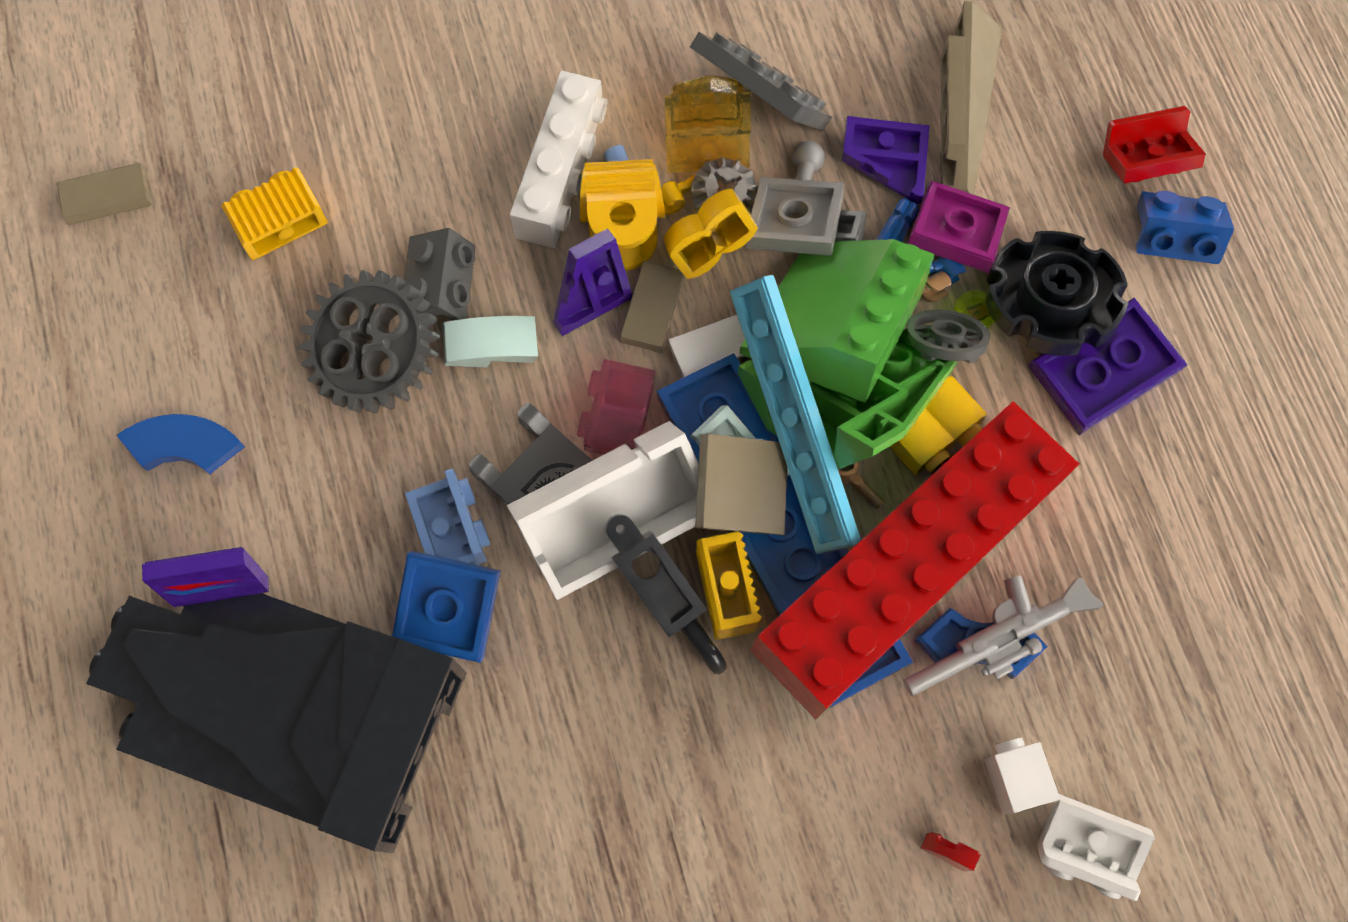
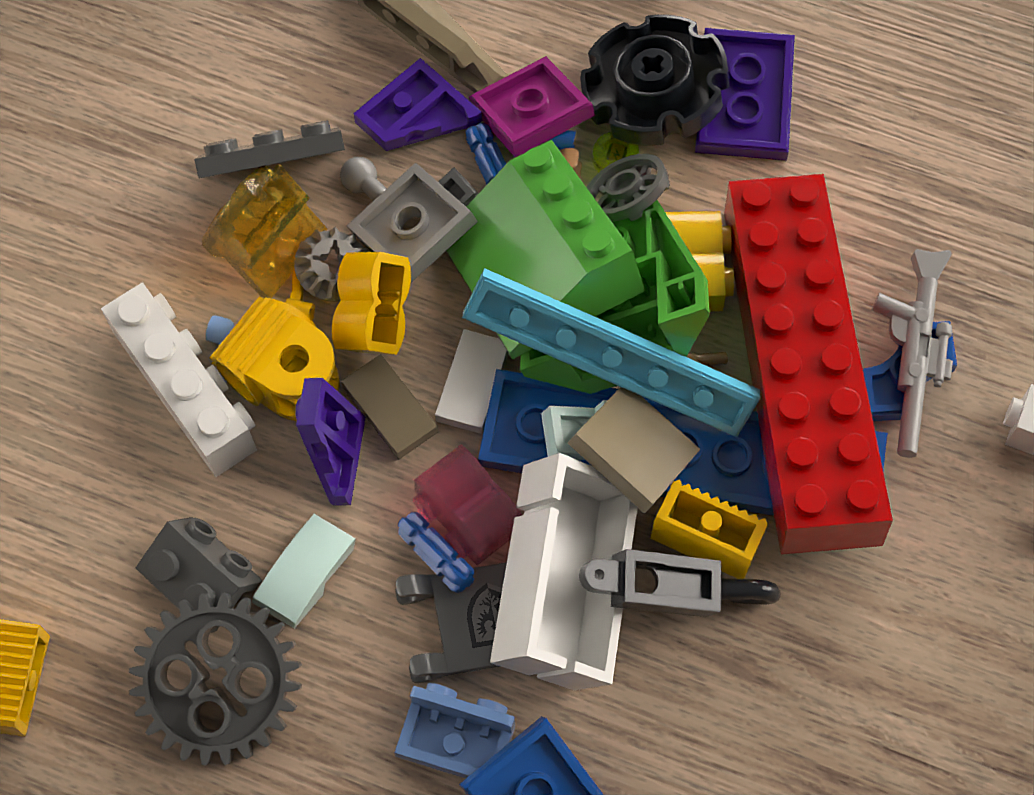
camera: 50 degrees left, 5 degrees down
(568, 414) = (436, 552): none -> blue axle

